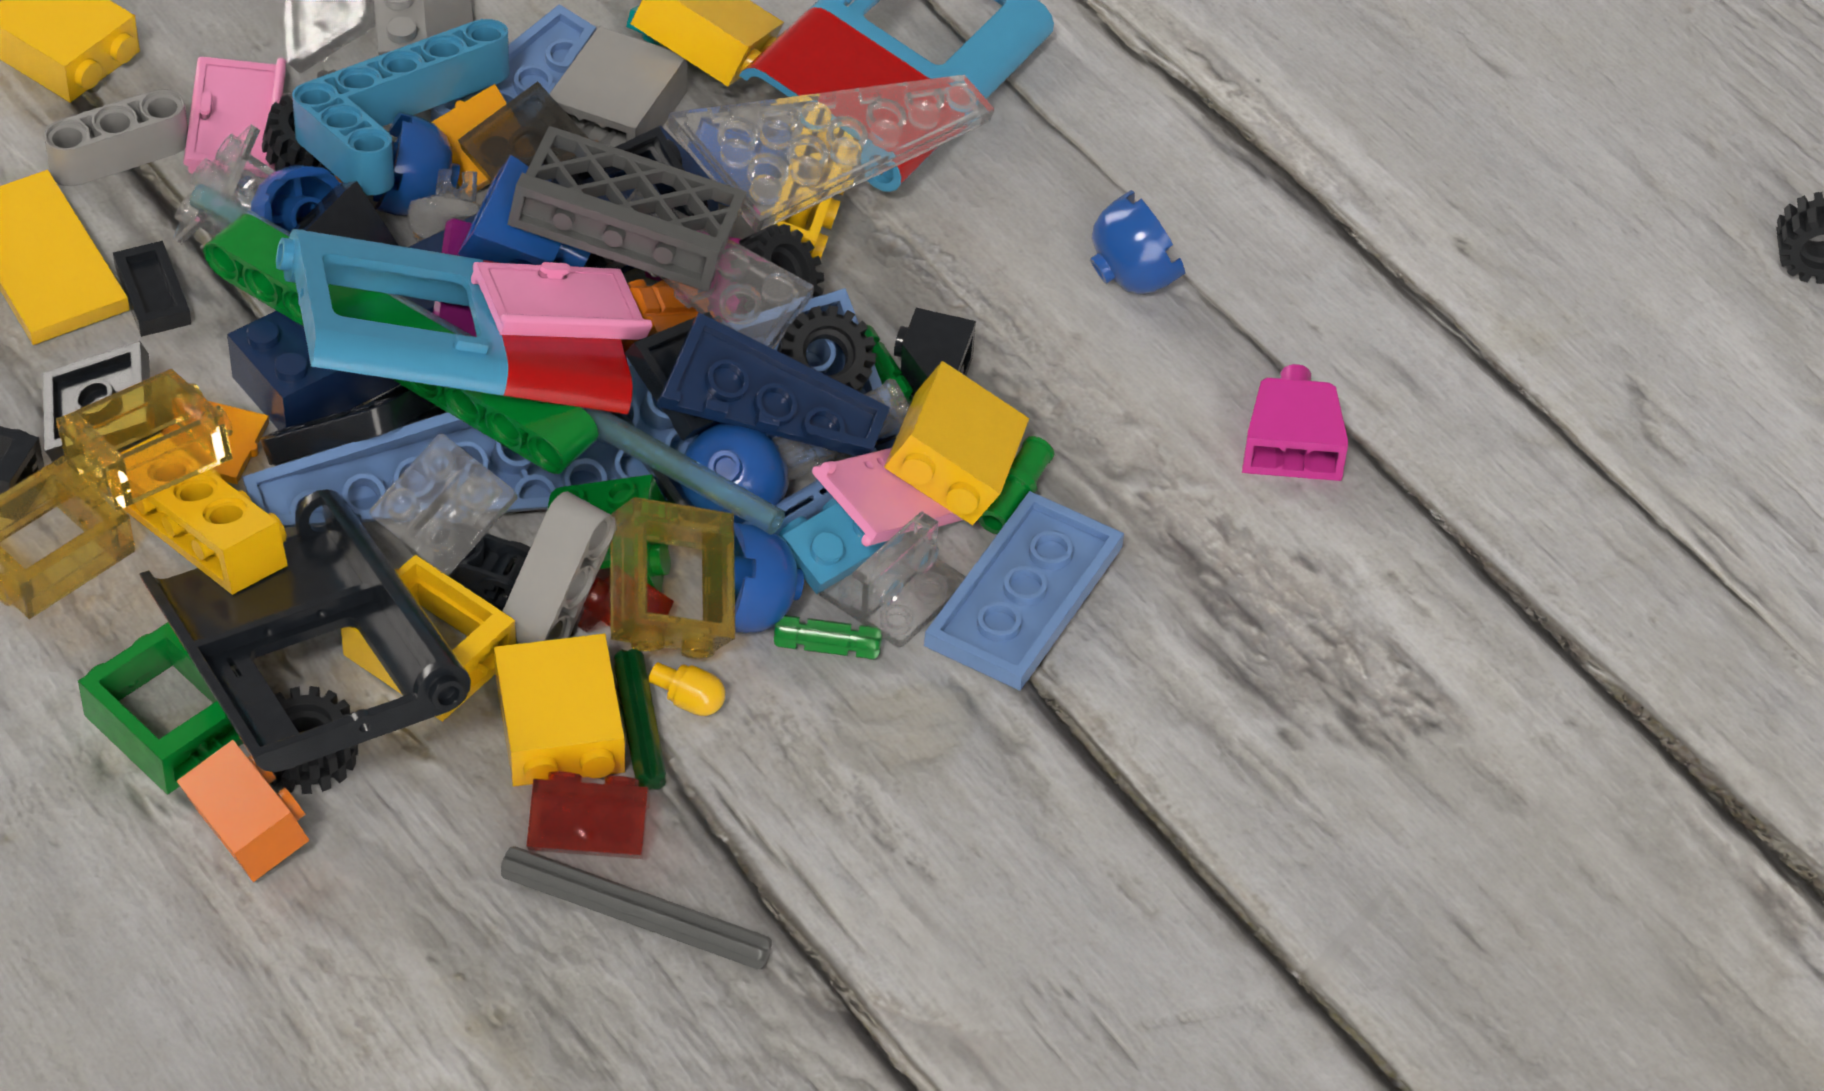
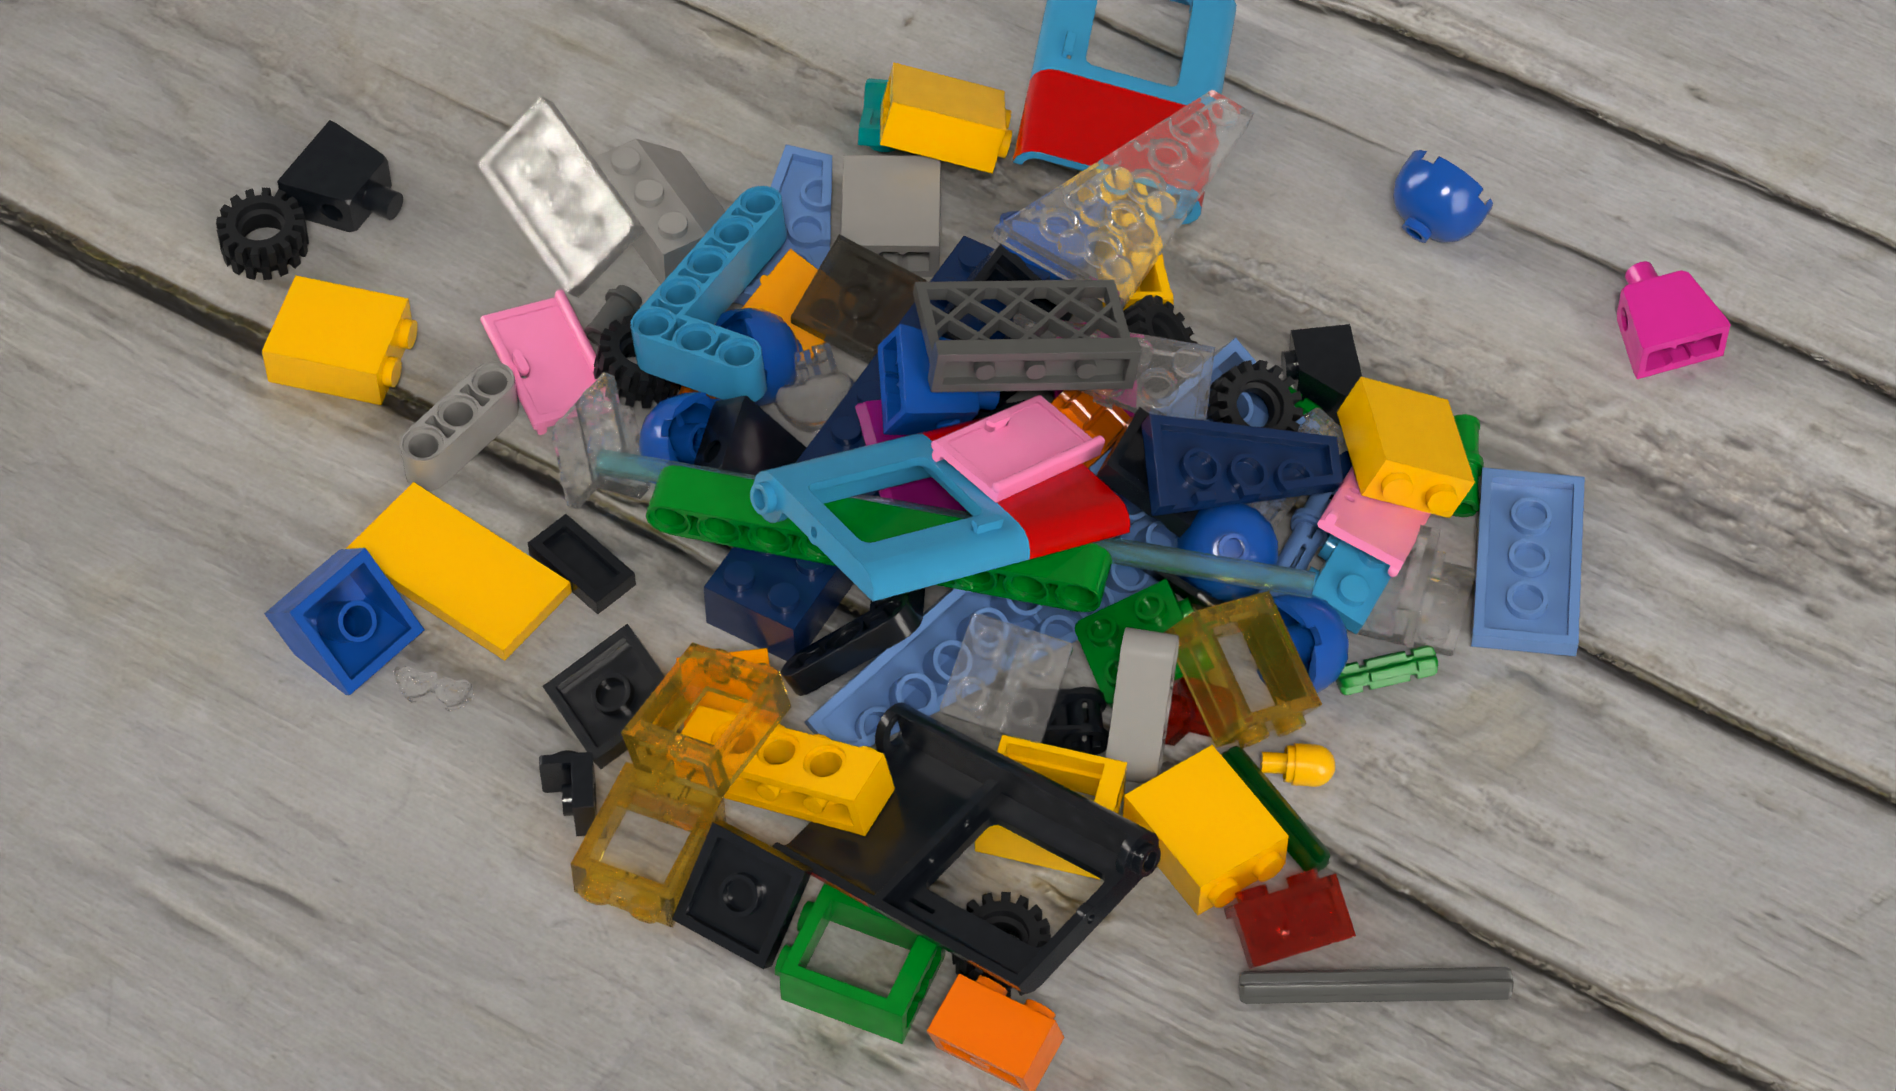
camera: 20 degrees left, 5 degrees up
(93, 603) = (742, 894): none -> black hinge

